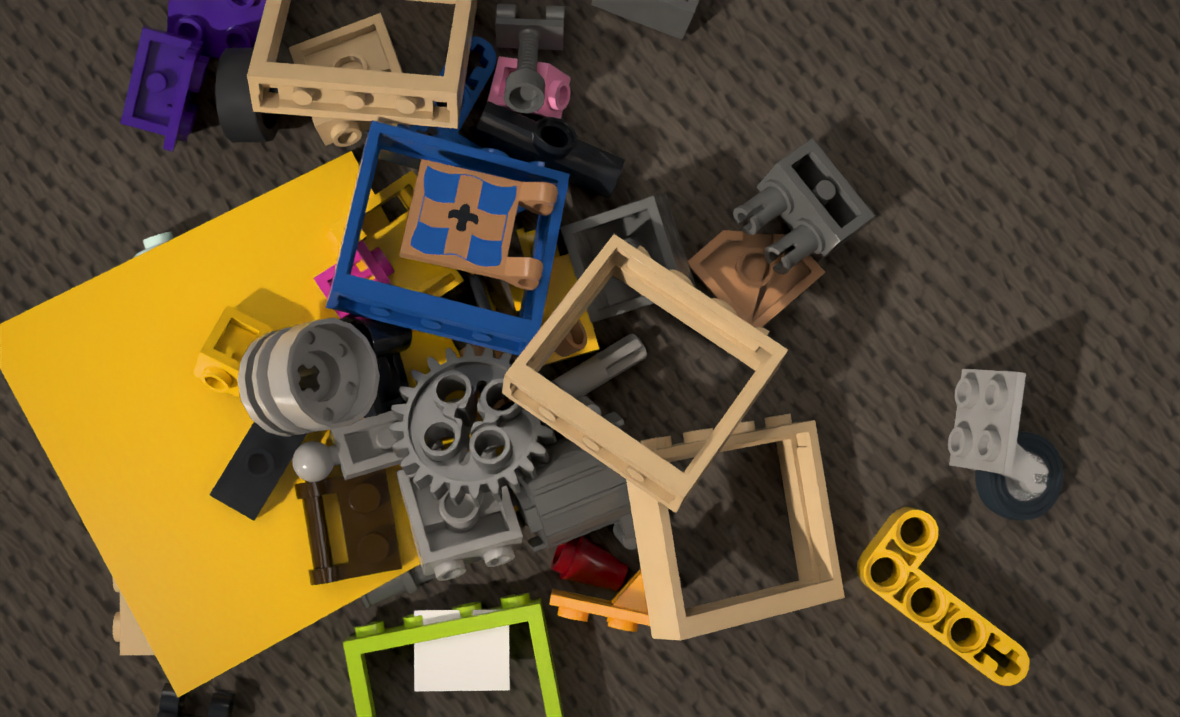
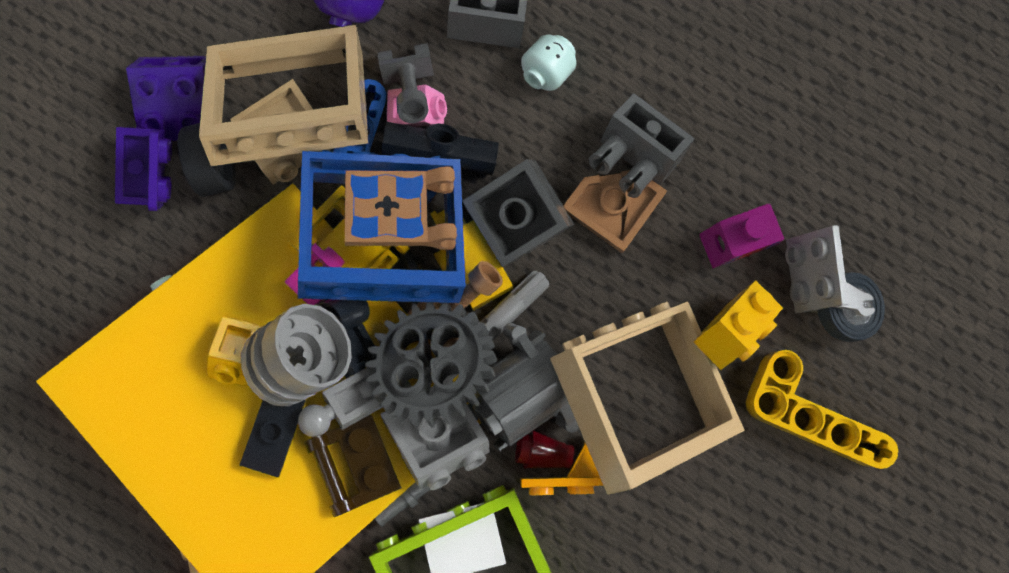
camera: 15 degrees left, 5 degrees down
(592, 432) = (528, 343): tan window -> none
(714, 69) = (548, 62): none -> light aqua head
(870, 467) = (739, 325): none -> yellow brick
(904, 353) = (742, 235): none -> magenta torso

